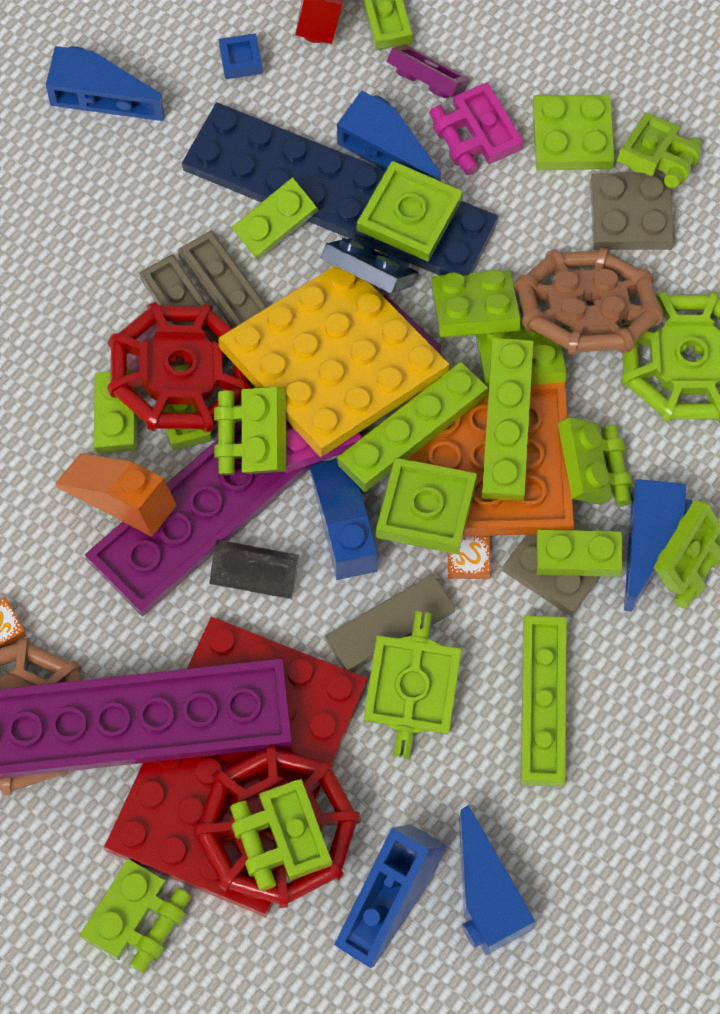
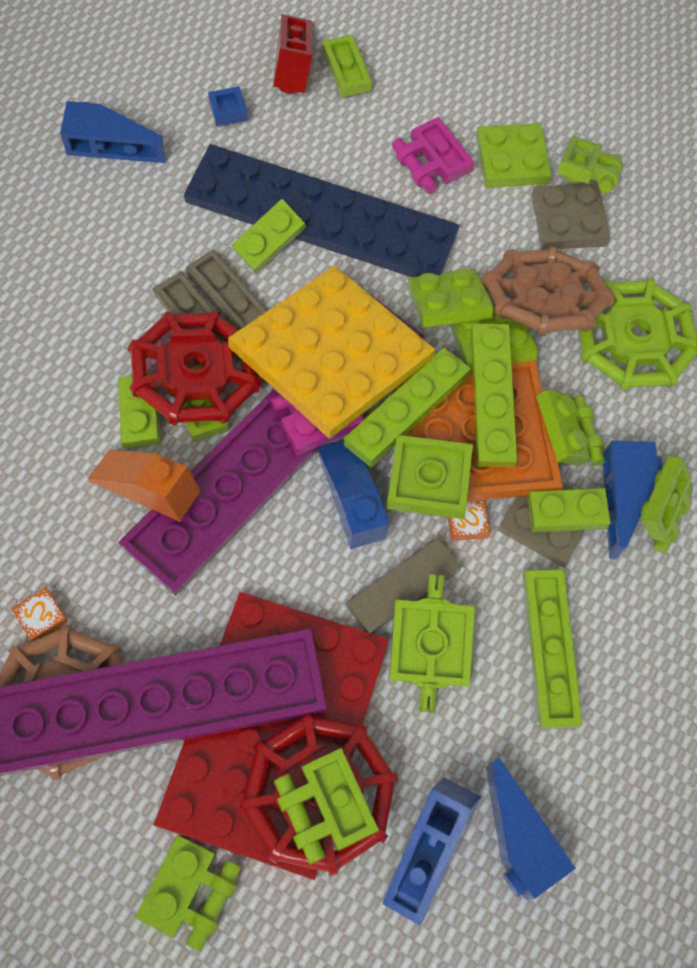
camera: 10 degrees left, 0 degrees up
(254, 569) = (275, 544): clear smoke plate -> none
(262, 431) = (274, 415): lime plate -> none
(361, 260) = (345, 263): dark blue plate -> none
(381, 136) = (357, 166): blue slope -> none
(409, 211) = (386, 222): lime plate -> none
(416, 65) = (374, 106): magenta plate -> none

